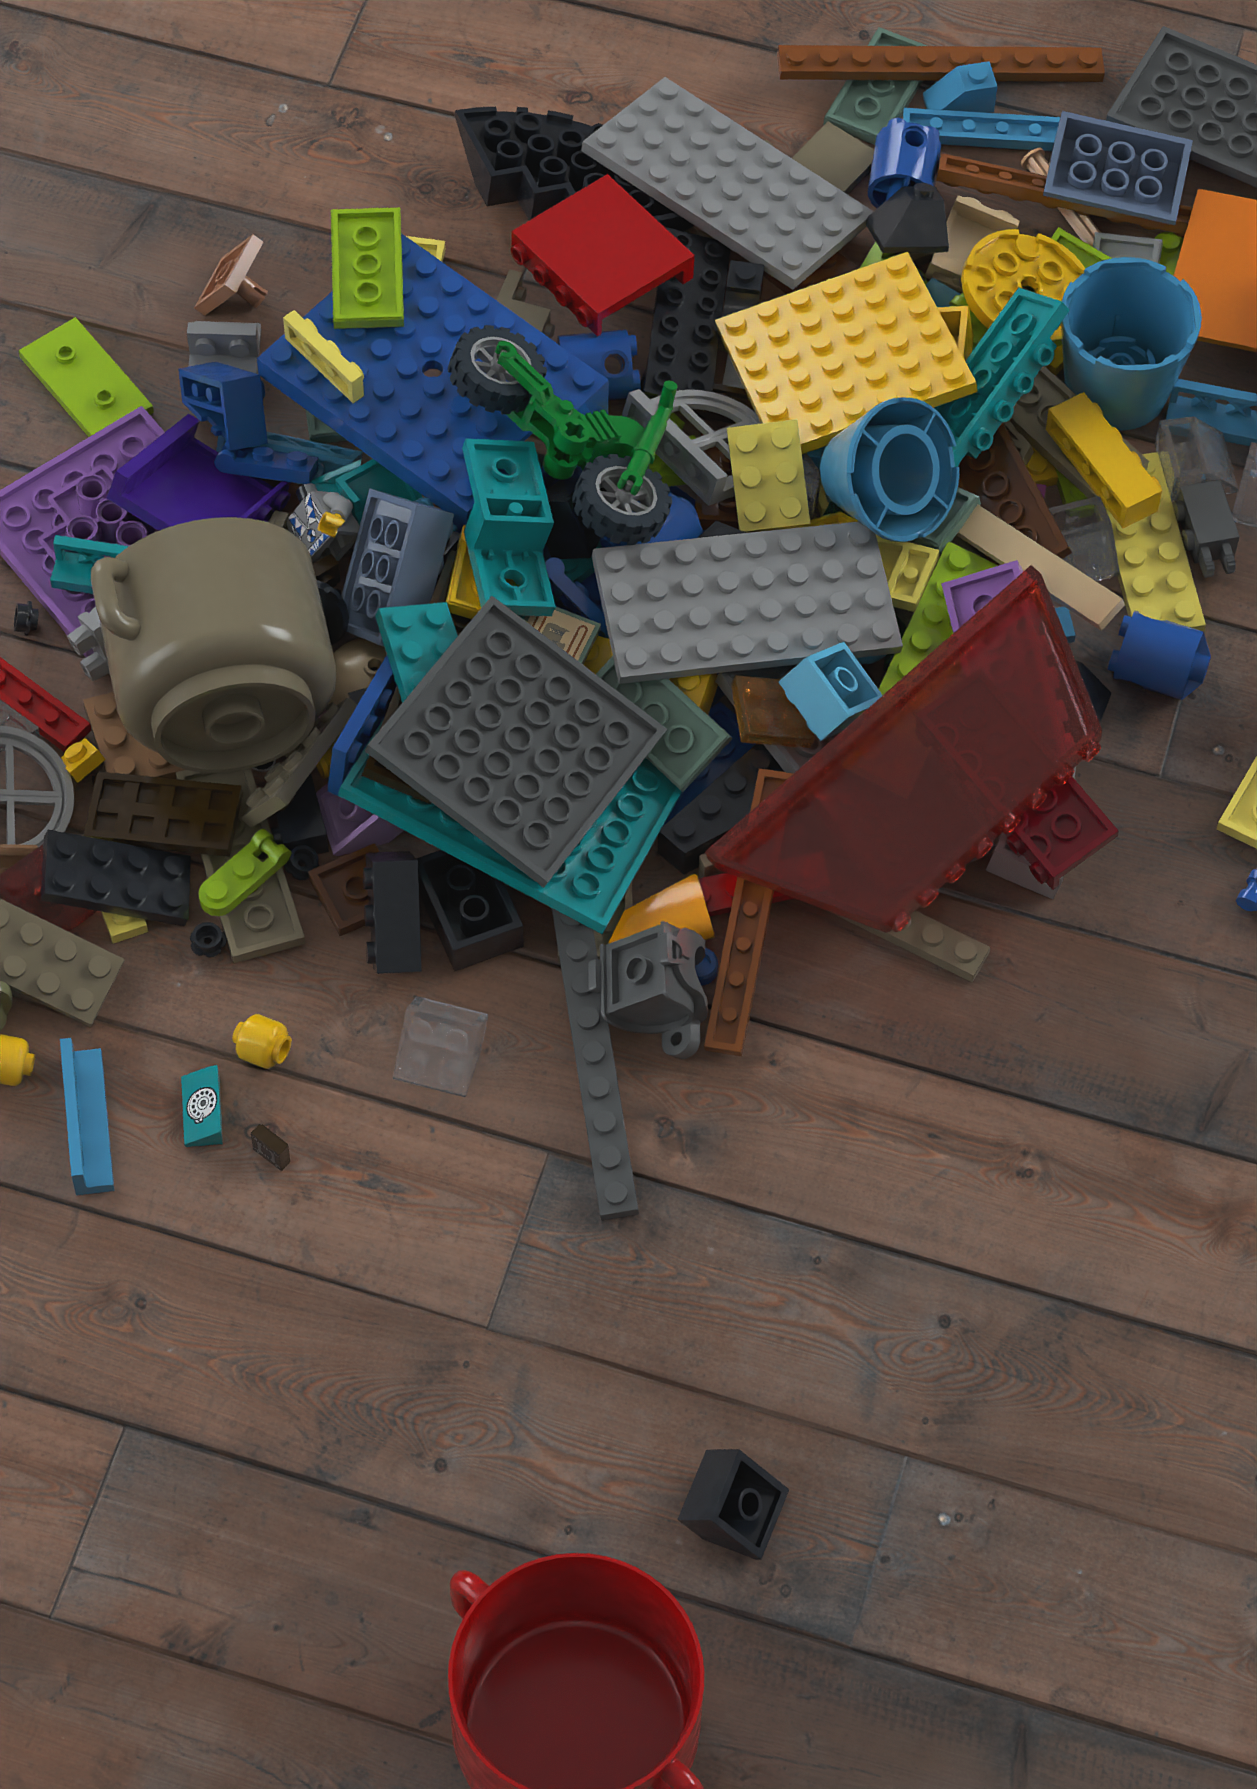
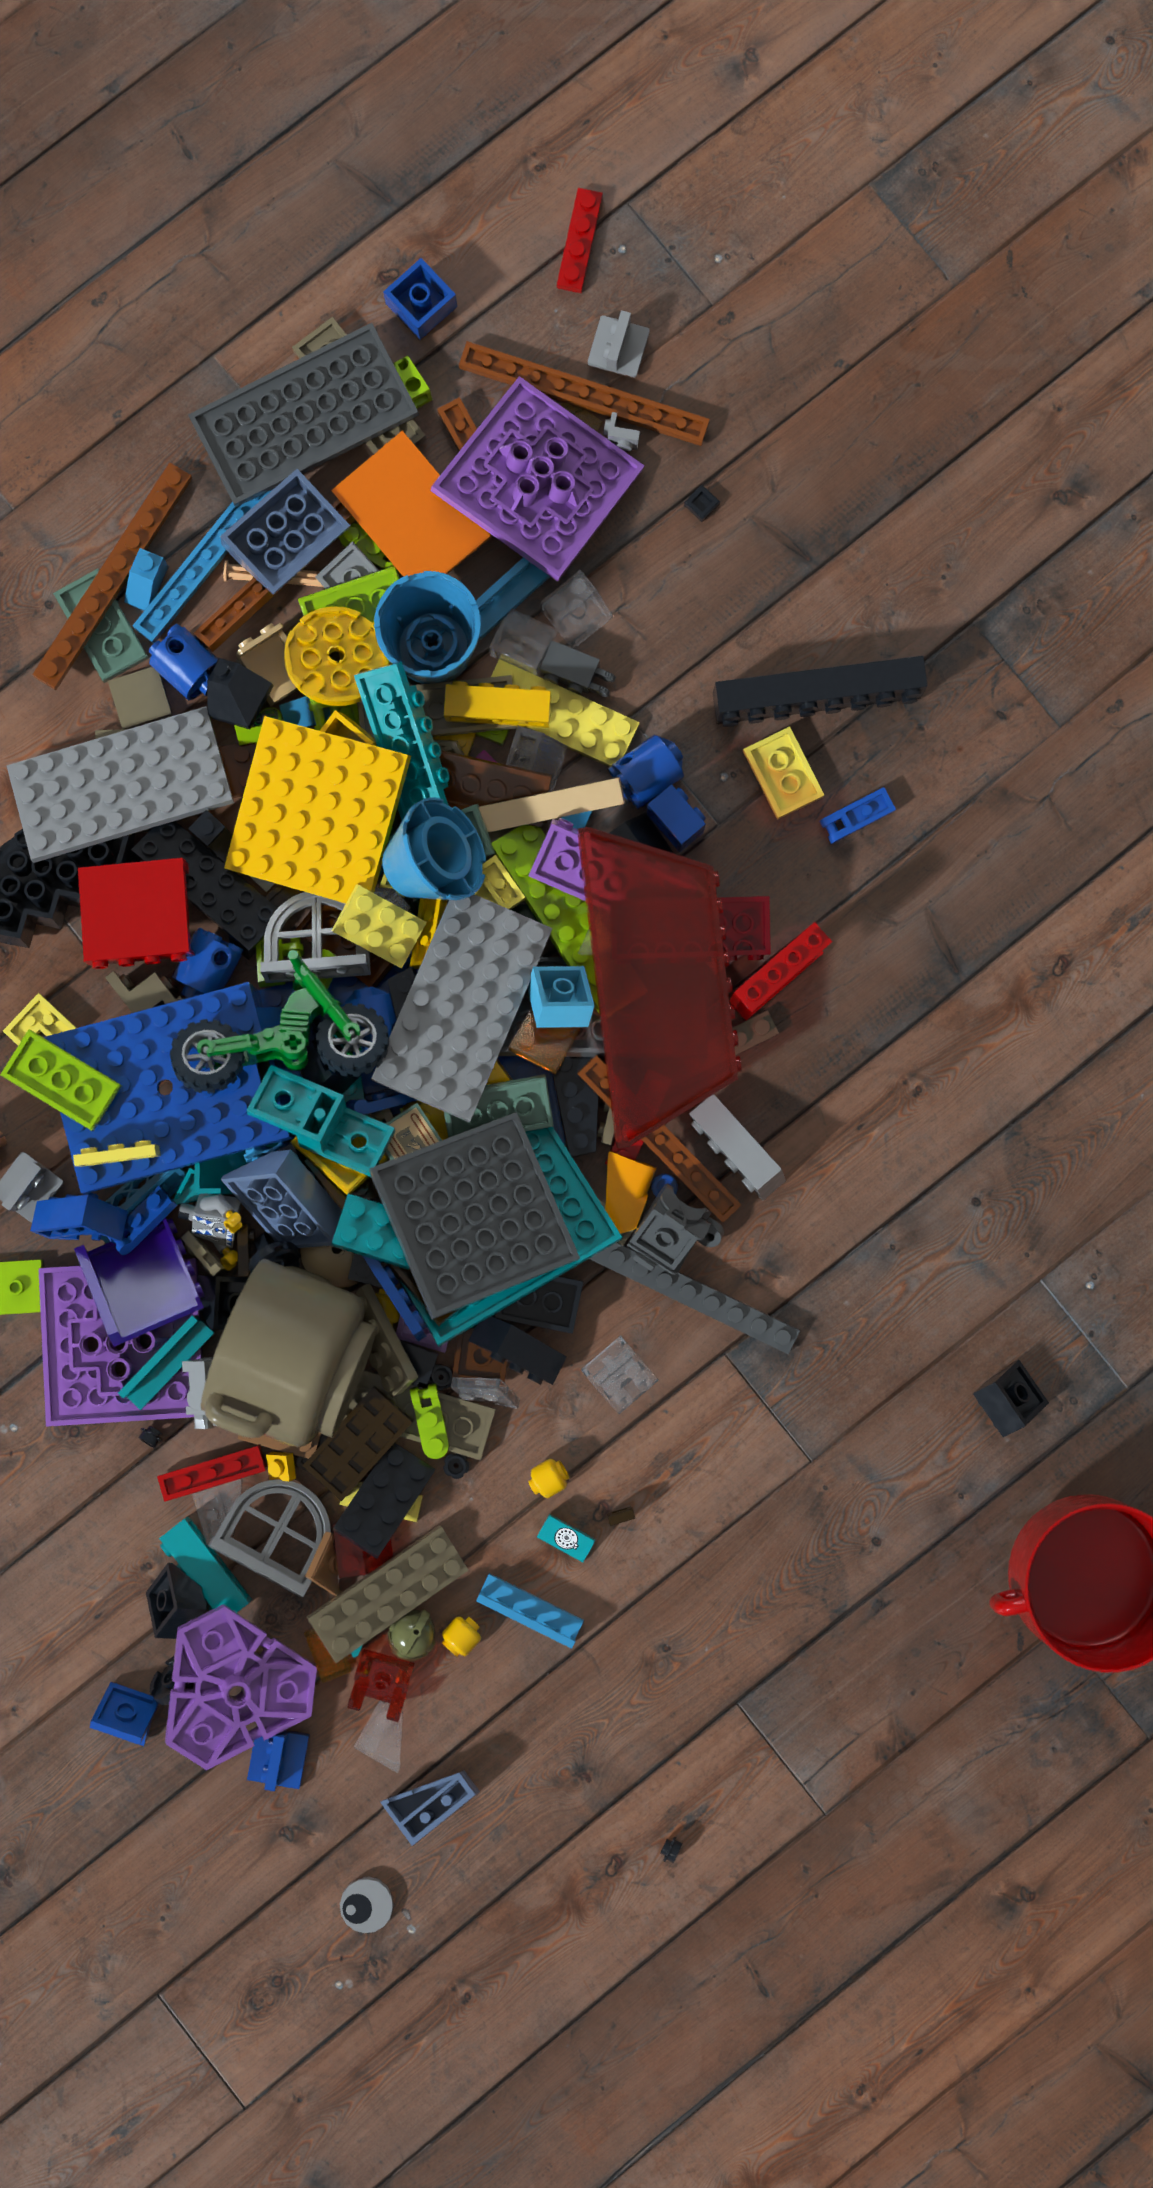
camera: 50 degrees left, 25 degrees up
(320, 913) = (485, 1390): none -> clear wing
(802, 1009) = (739, 1148): none -> light grey wedge
(1042, 907) = (780, 971): none -> red panel
(1131, 713) = (676, 817): none -> blue brick

